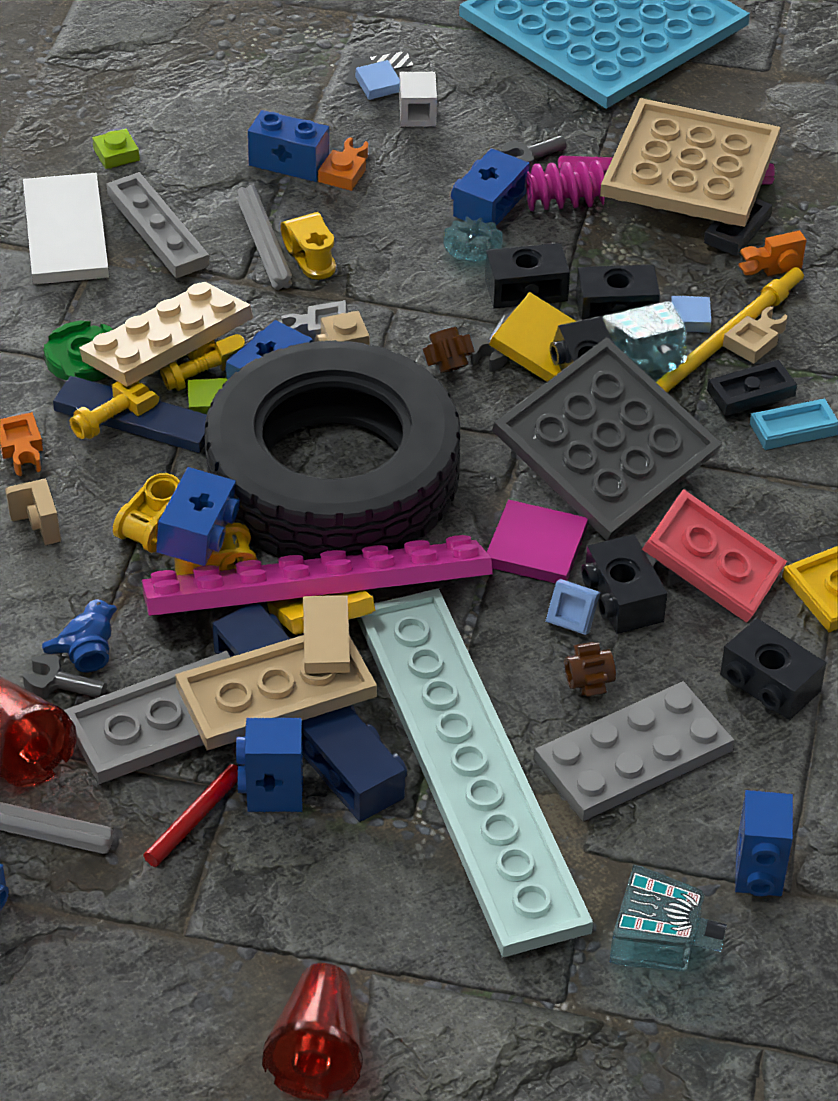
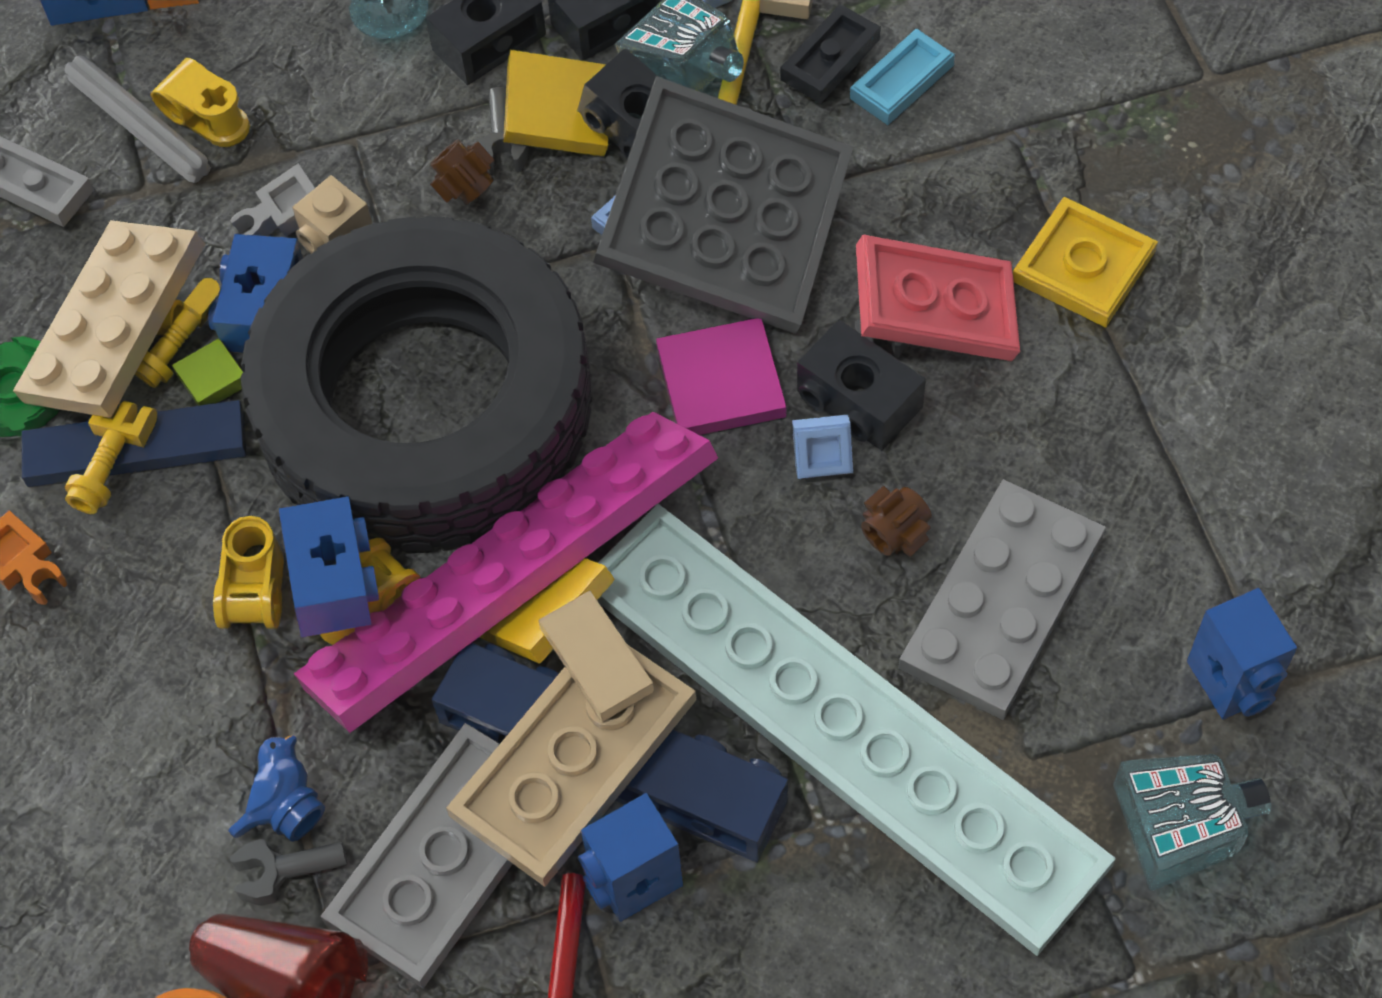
camera: 25 degrees left, 15 degrees up
(35, 502) = (100, 636): tan bracket -> none
(772, 668) = (1114, 398): black brick -> none

